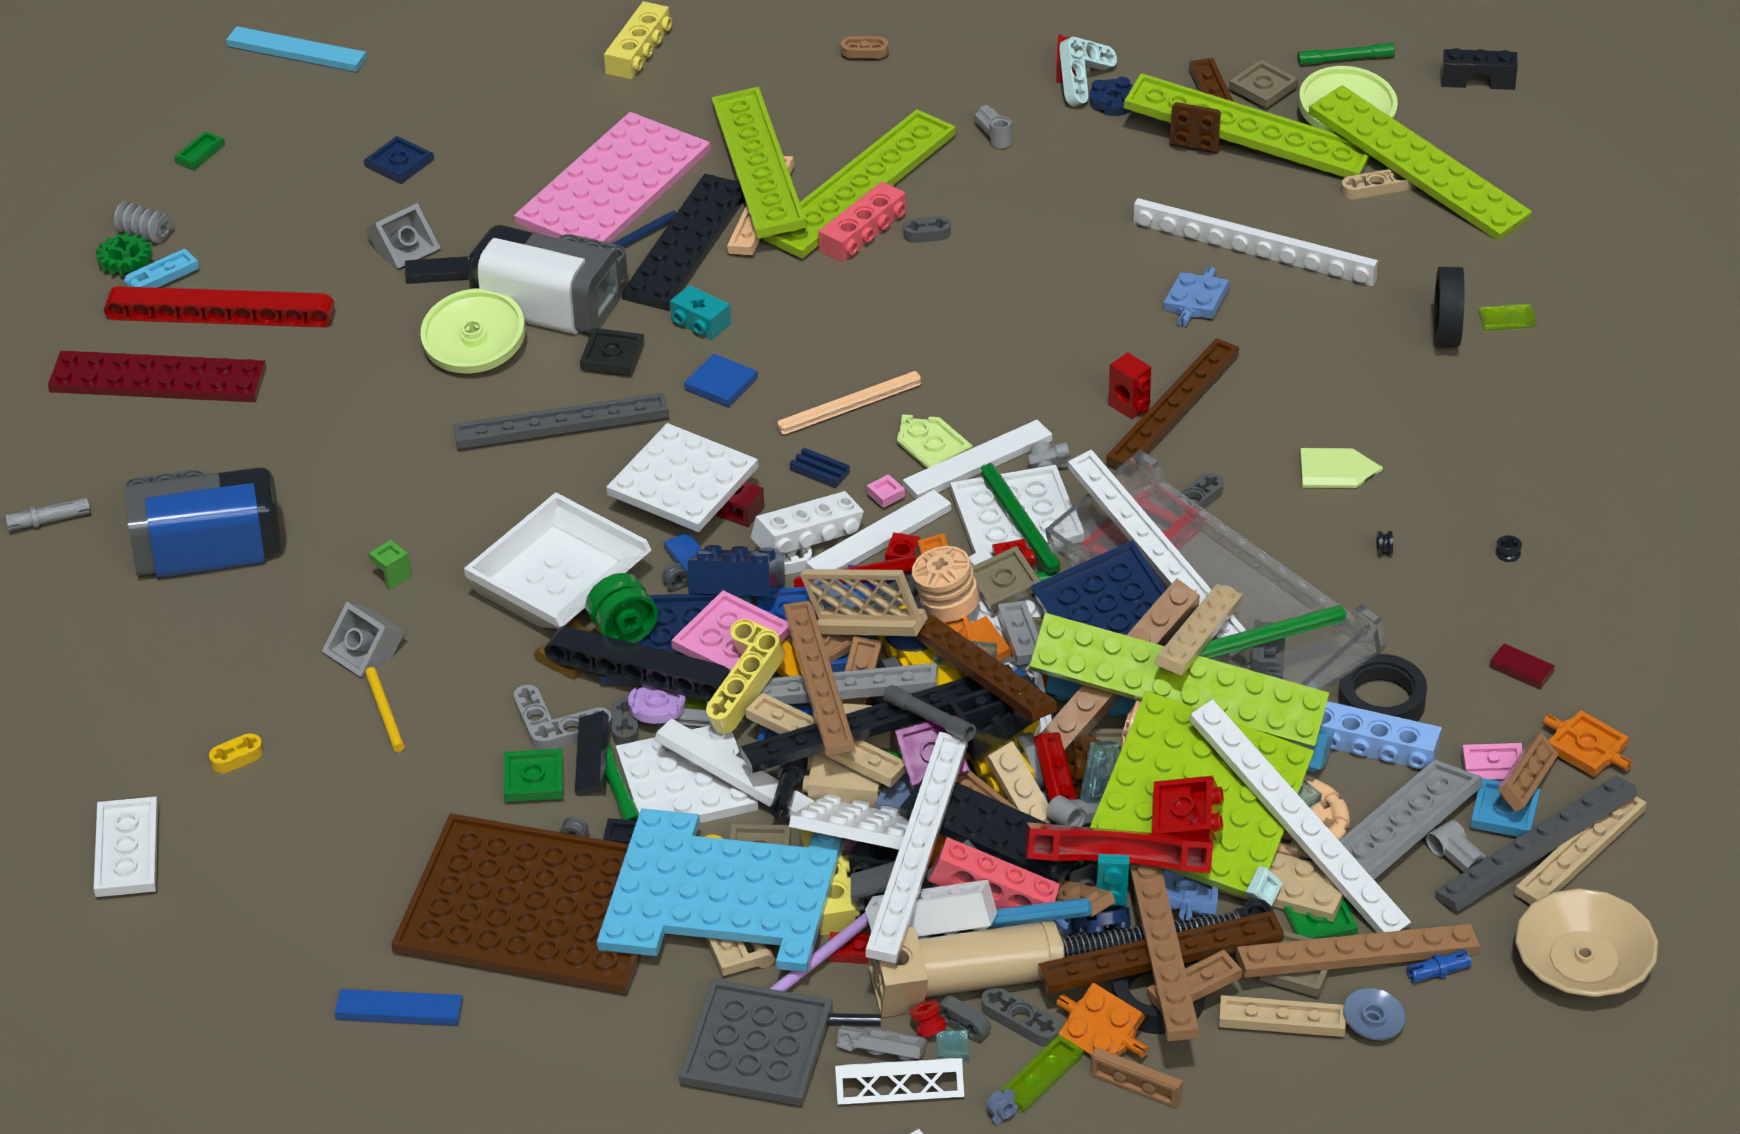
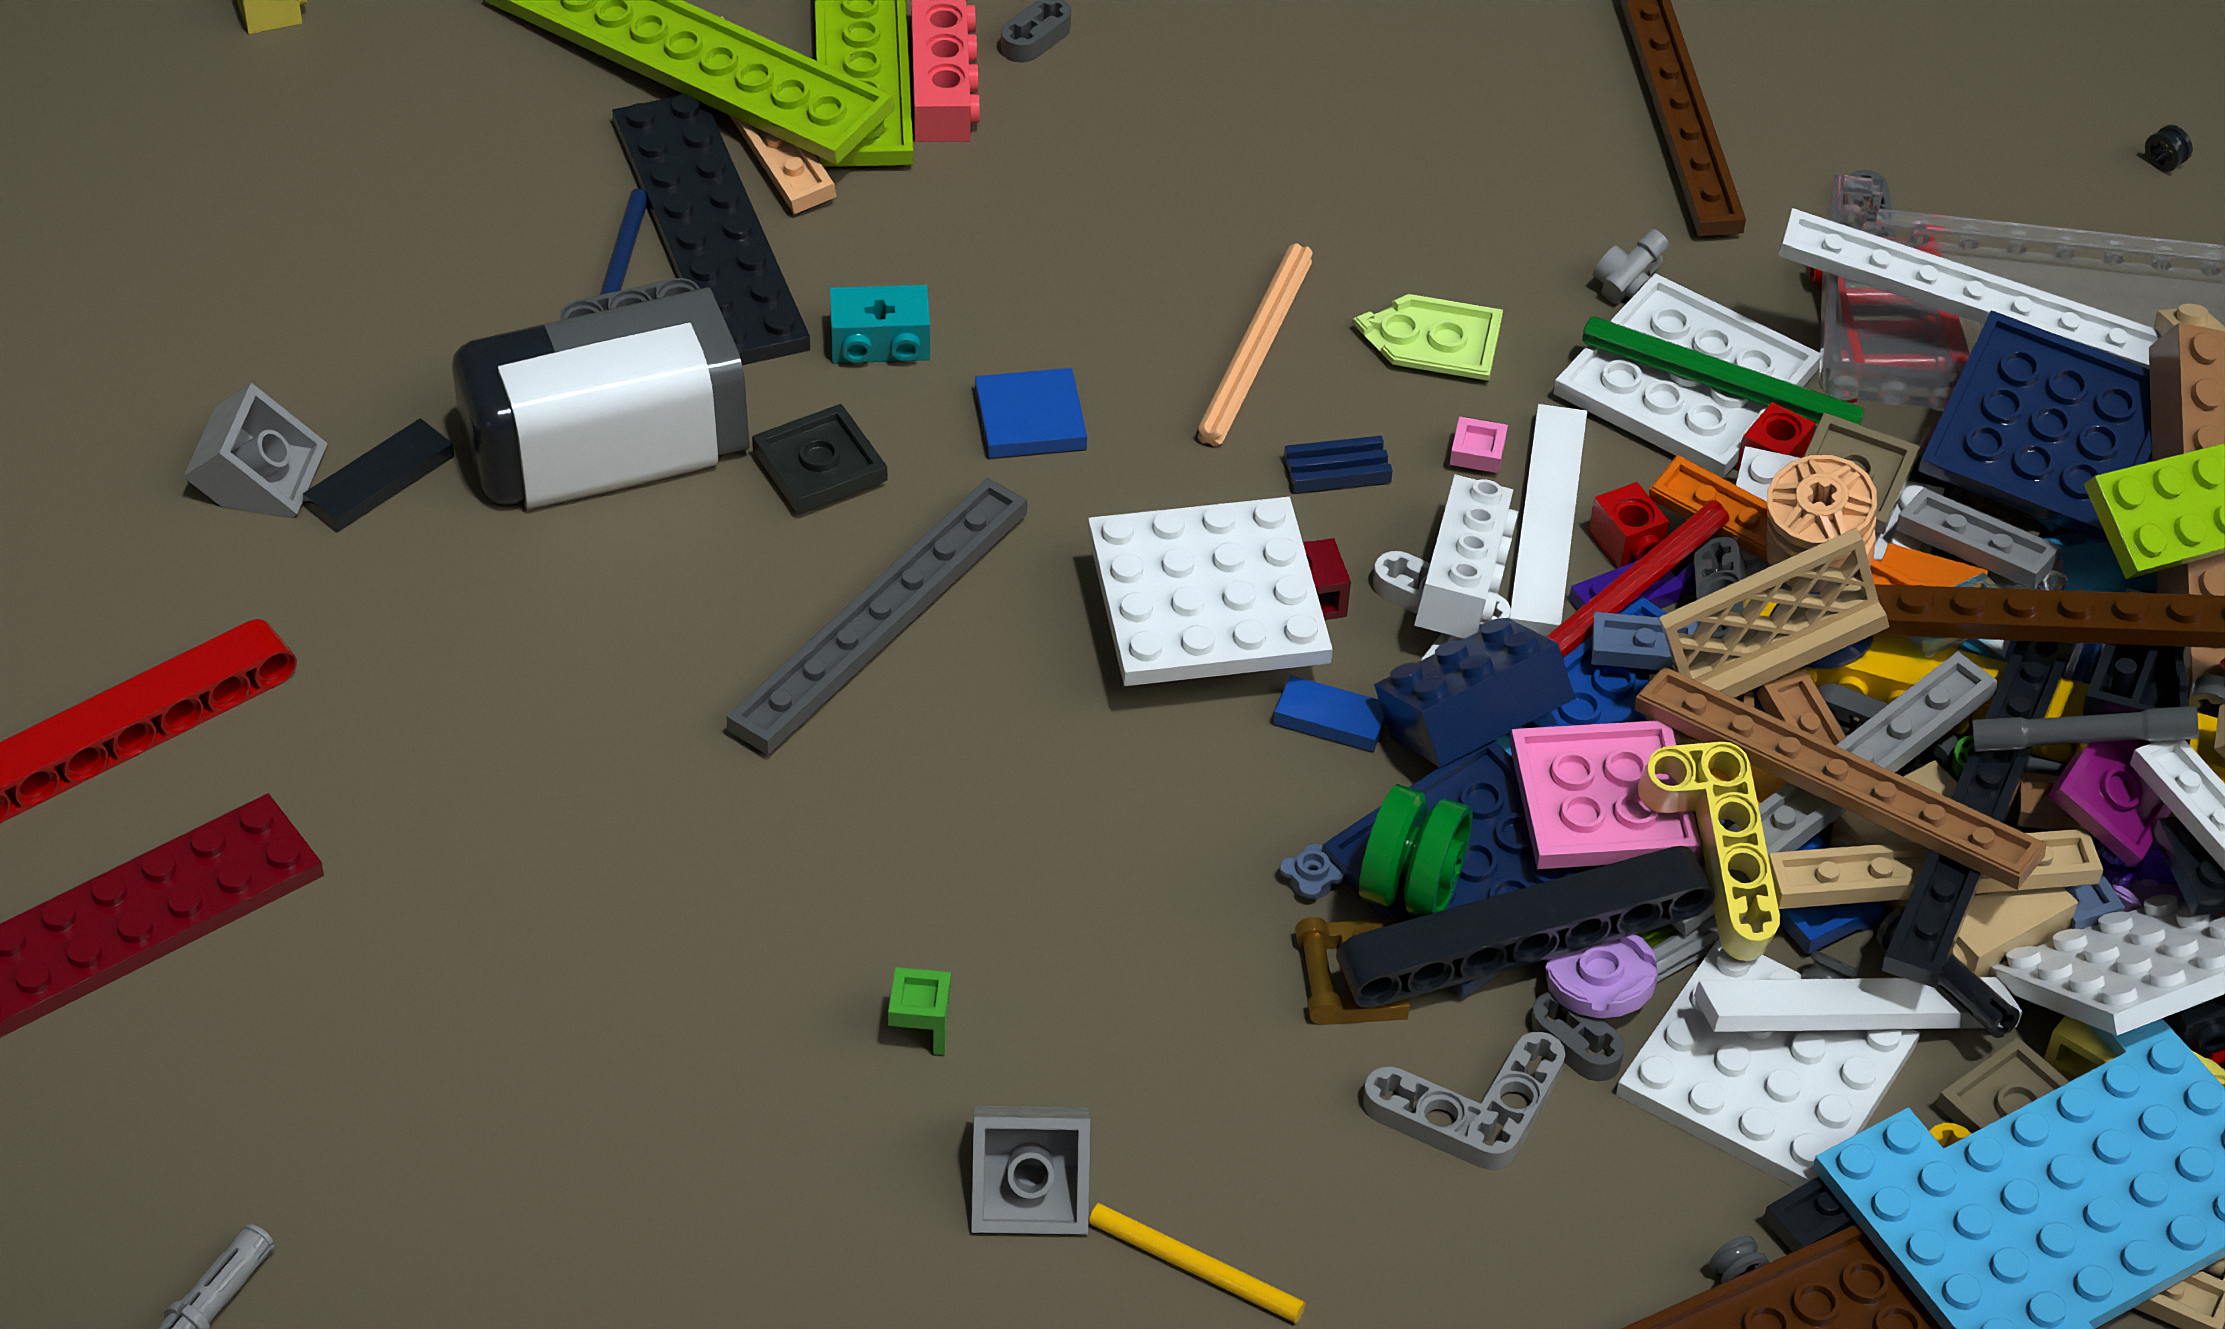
camera: 45 degrees left, 5 degrees up
(202, 521) = (531, 1151): blue piece -> none
(398, 160) = (78, 336): dark blue tile -> none
(472, 331) = (577, 546): yellowish green dish -> none
(533, 775) = (1564, 1214): green plate -> none
(553, 561) = (1199, 845): white piece -> none
(591, 753) = (1615, 1117): black tile -> none
(613, 180) = (478, 197): bright pink plate -> none
(625, 803) = (1629, 1113): green piece -> none
(671, 572) = (1363, 756): dark grey bush -> none
(970, 462) = (1532, 328): white tile -> none
(1129, 385) = (1619, 104): red brick -> none
(1335, 468) = (1969, 82): yellowish green tile -> none

